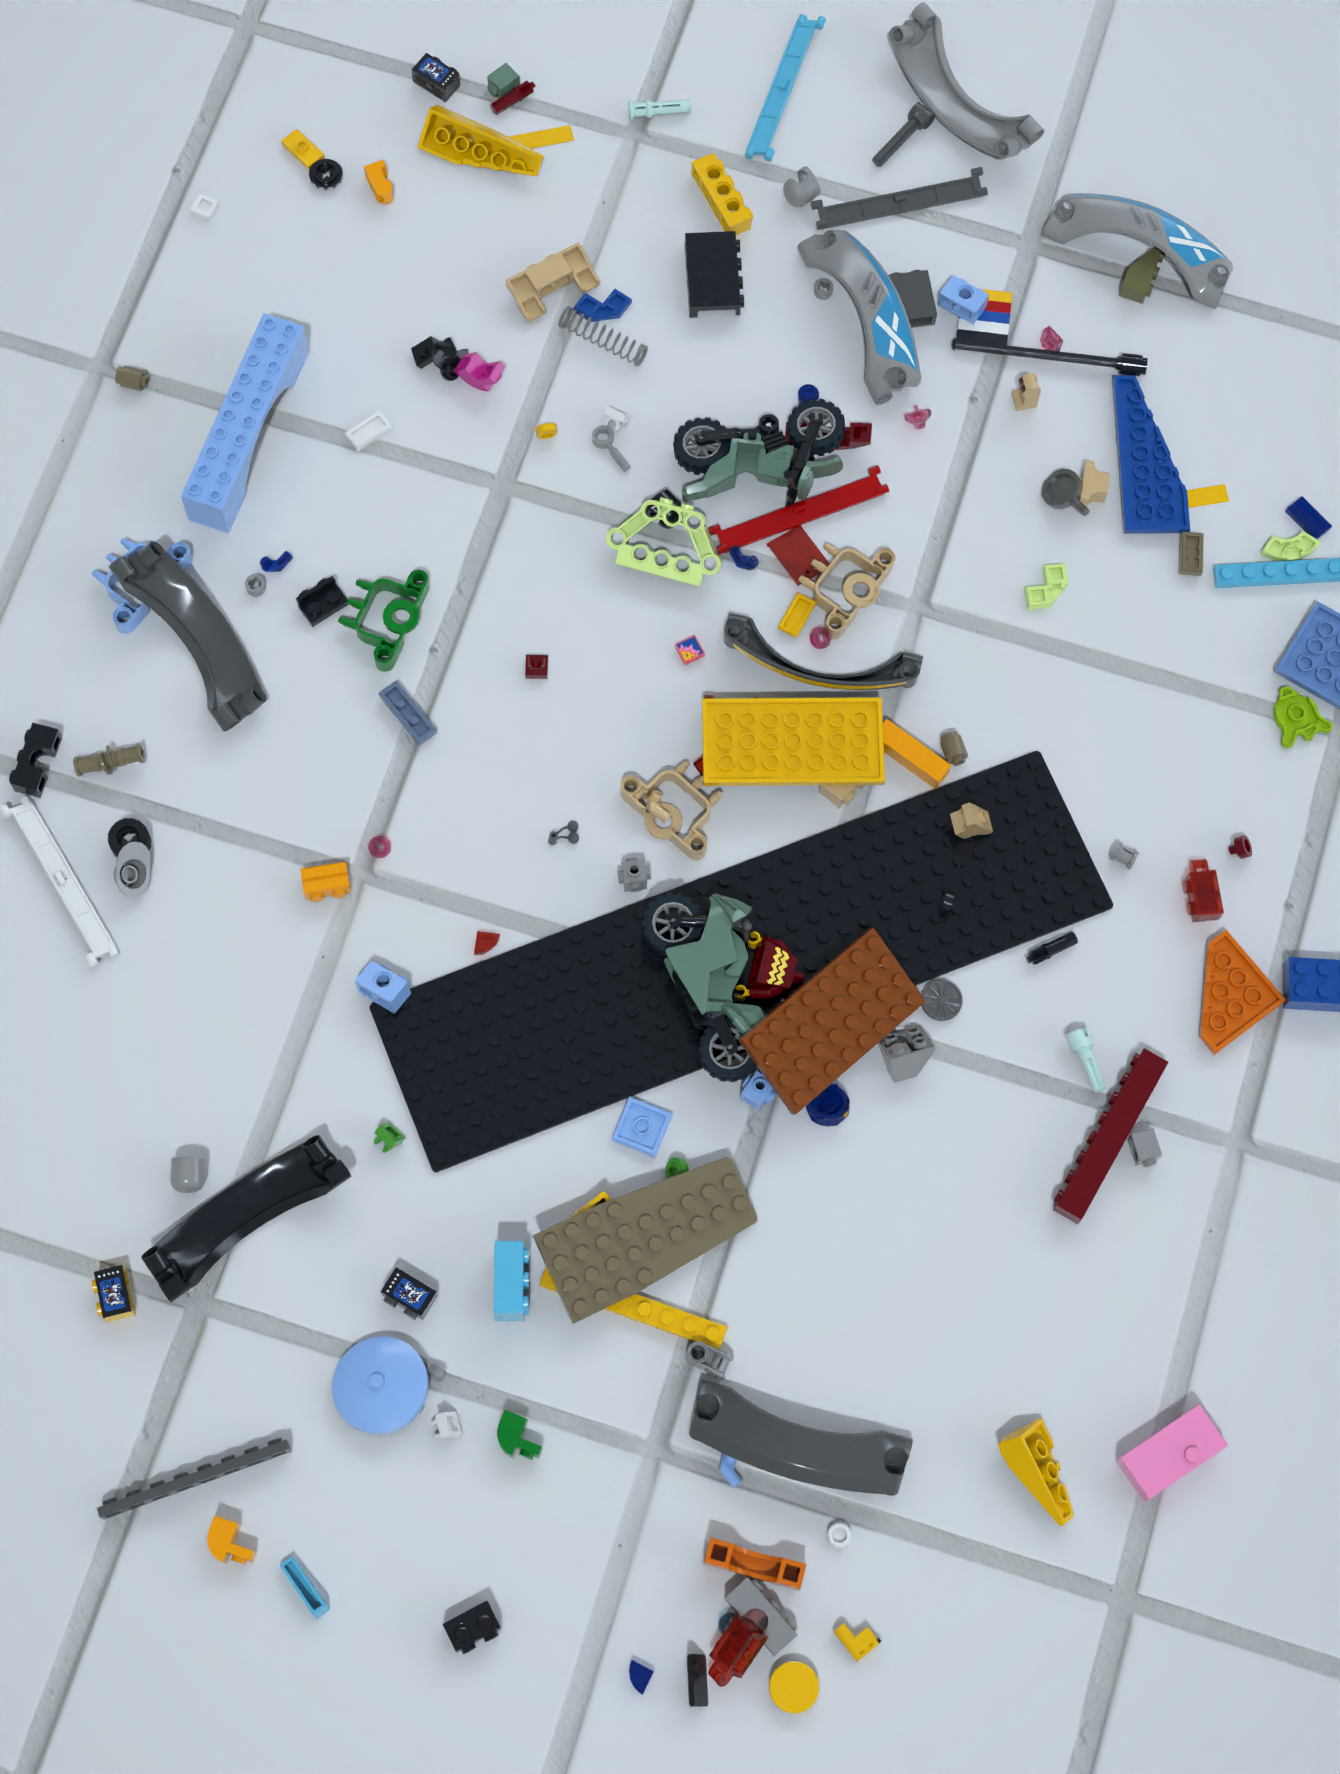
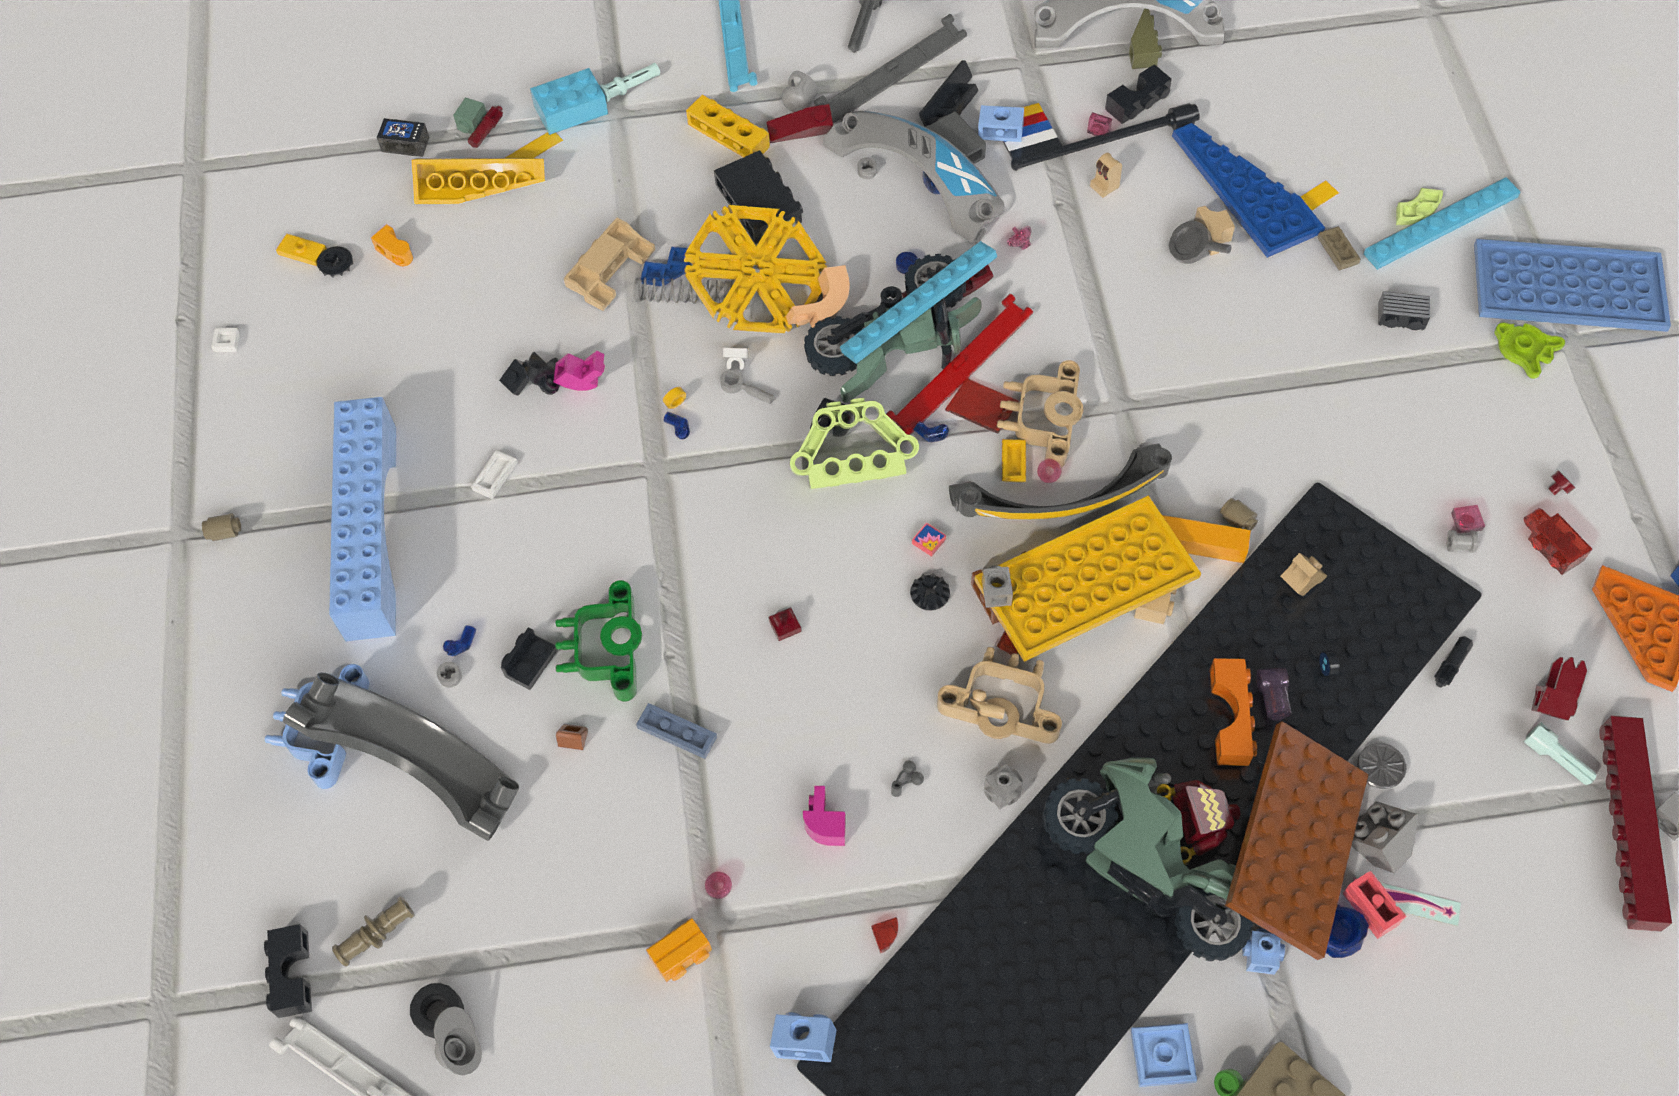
camera: 20 degrees left, 10 degrees down
(326, 679) = (571, 736): none -> dark orange slope
(480, 838) = (822, 825): none -> dark pink brick
(540, 457) = (680, 424): none -> clear blue arm
(595, 105) = (569, 101): none -> medium azure piece
(662, 702) = (930, 601): none -> black gear
(670, 329) = (741, 262): none -> yellow plate
(711, 724) = (997, 595): none -> light grey brick
(730, 394) = (835, 291): none -> light nougat arch
(785, 441) = (918, 302): none -> medium azure plate
(786, 220) = (801, 124): none -> dark red slope
(833, 925) = (1230, 682): none -> orange arch
(863, 1097) = (1375, 903): none -> coral brick
(890, 899) = (1274, 685): none -> clear purple piece
(895, 1108) = (1424, 905): none -> sticker
(935, 252) = (951, 96): none -> black bracket
(1045, 595) = (1234, 328): yellowish green tile -> none
(1089, 330) = (1151, 87): none -> black arch
(1112, 1014) = (1561, 689): none -> dark red piece
(1142, 840) = (1468, 519): none -> clear pink plate
(1209, 636) = (1403, 310): none -> brick
(1308, 518) = (1417, 176): clear blue tile -> none

